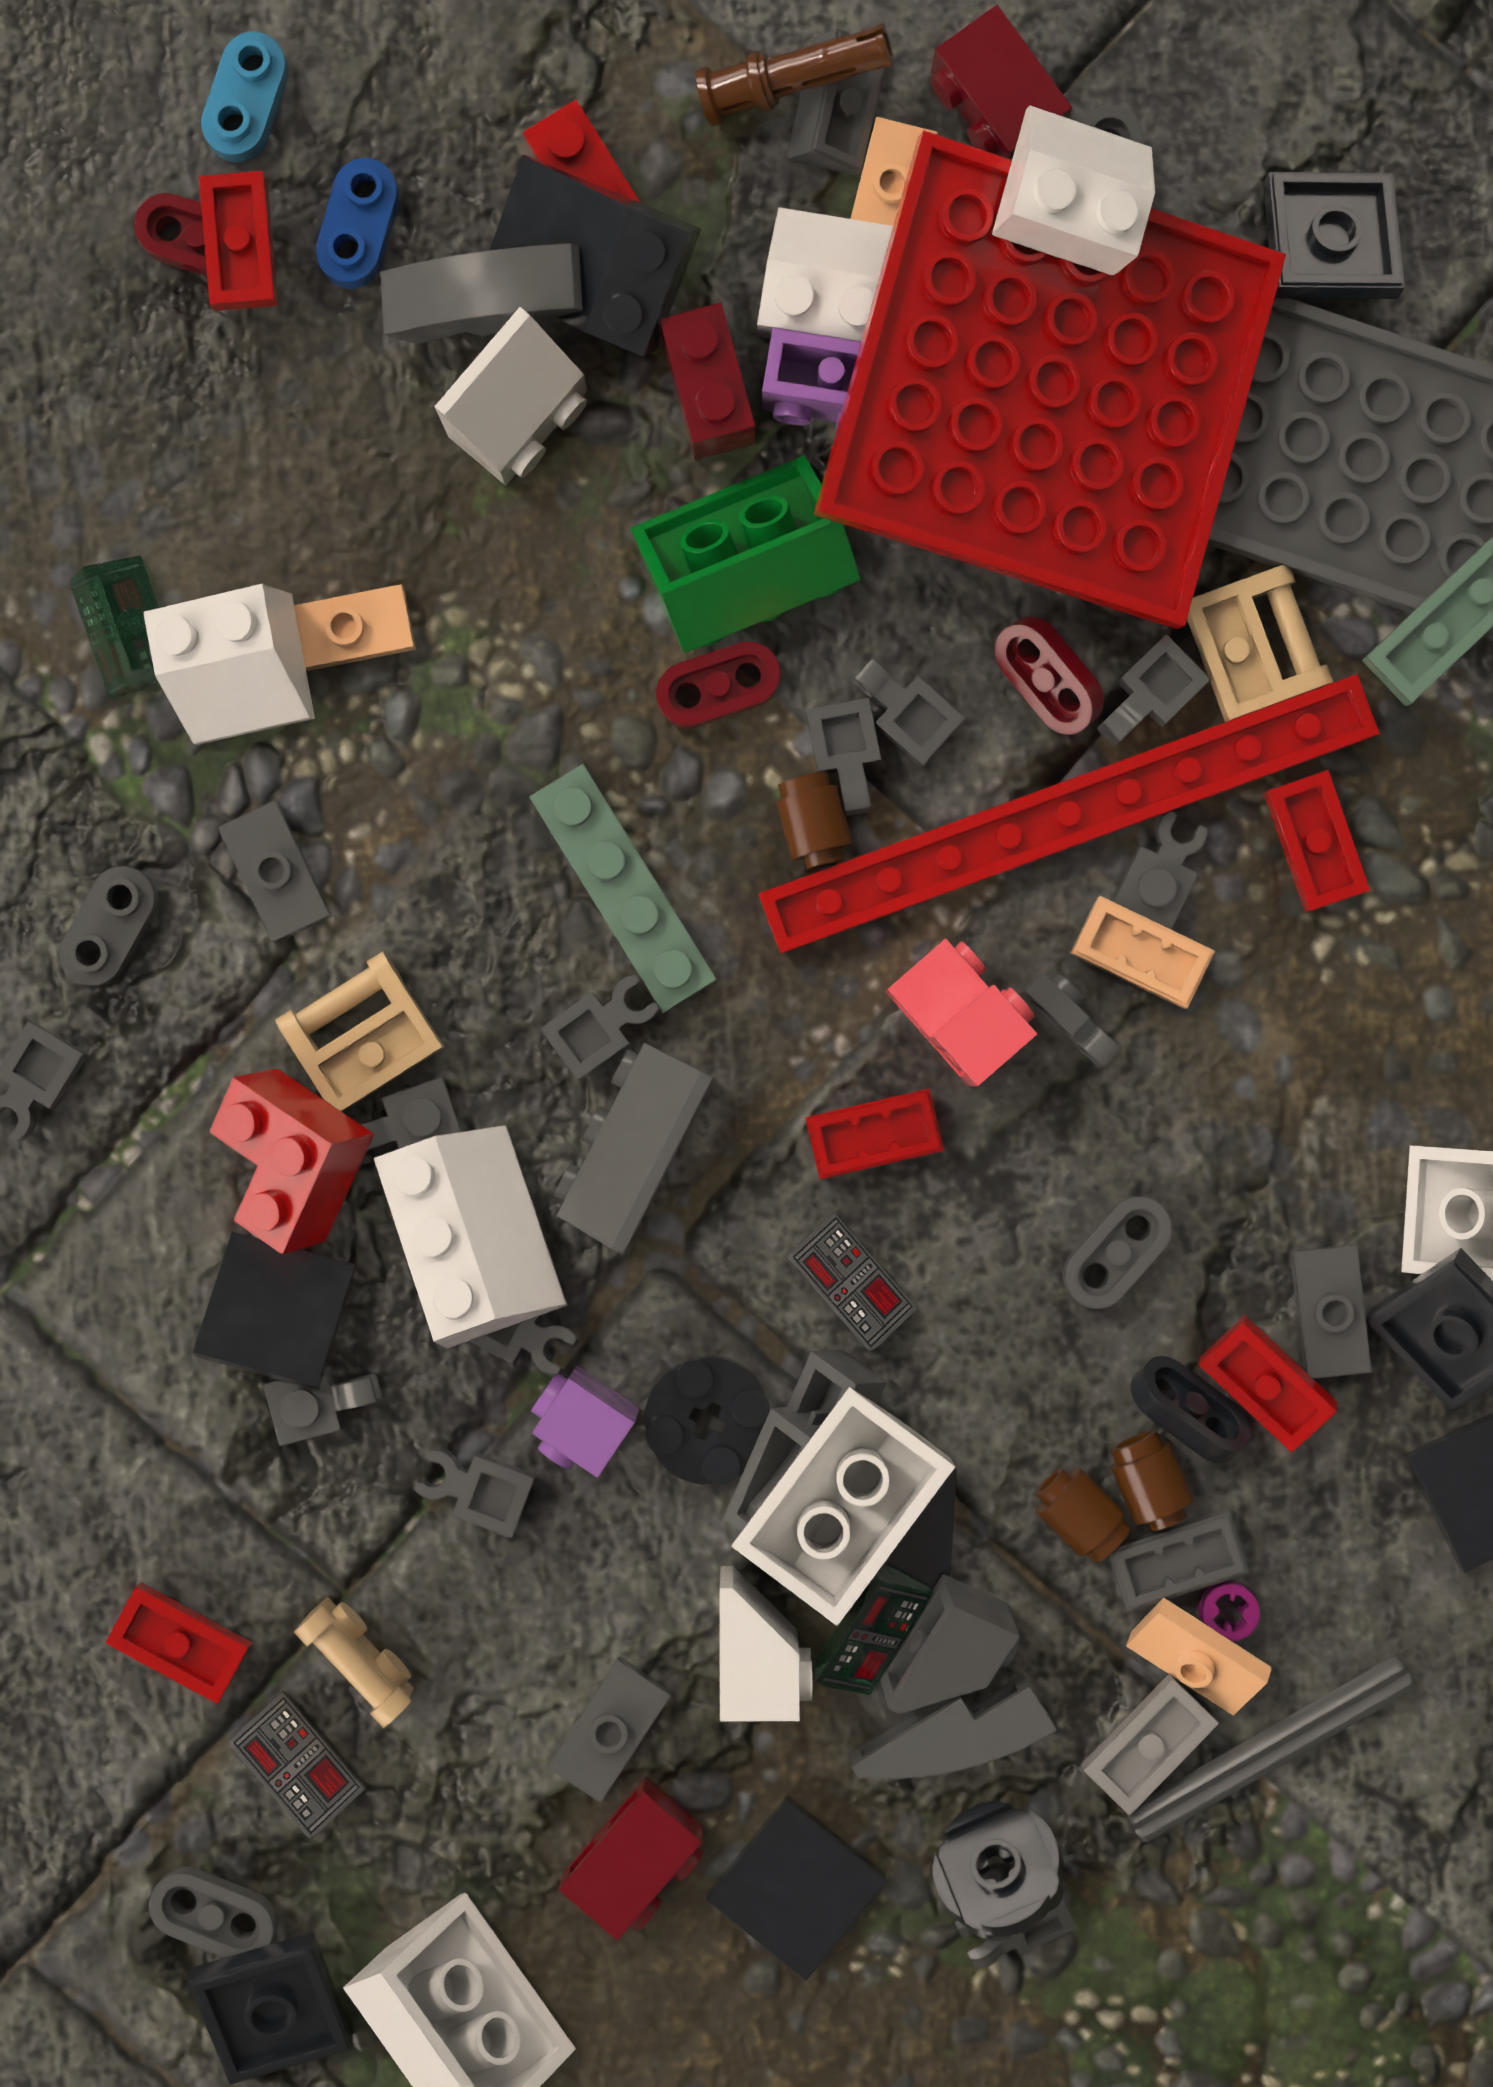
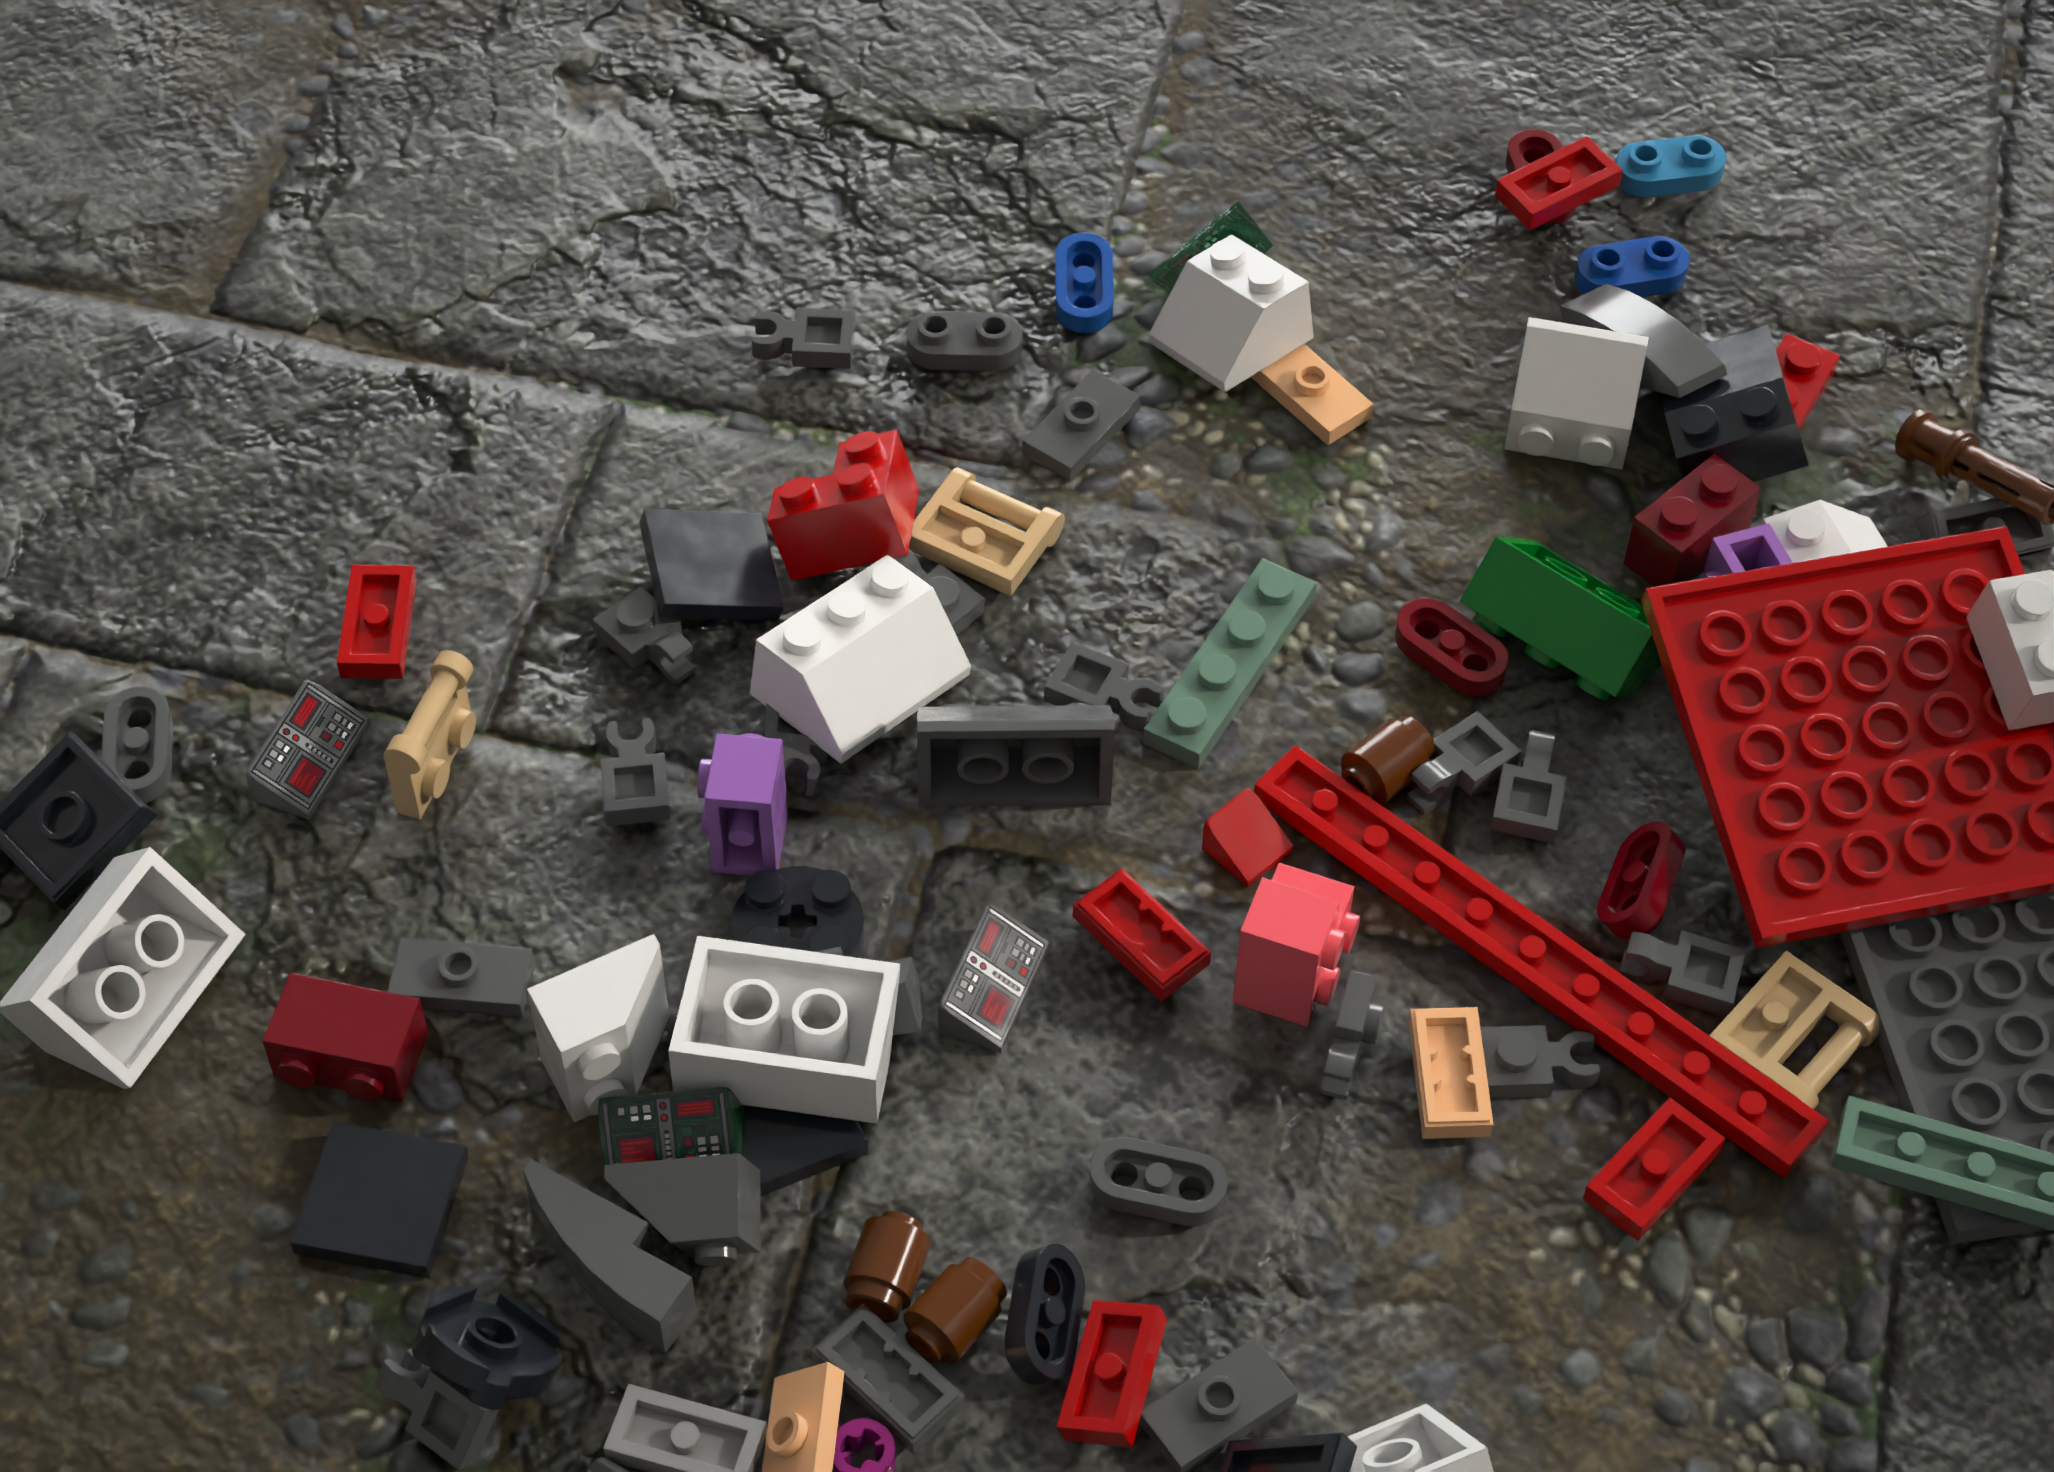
camera: 60 degrees right, 35 degrees down
(103, 774) = (1084, 282): none -> blue plate
(824, 986) = (1245, 838): none -> red slope

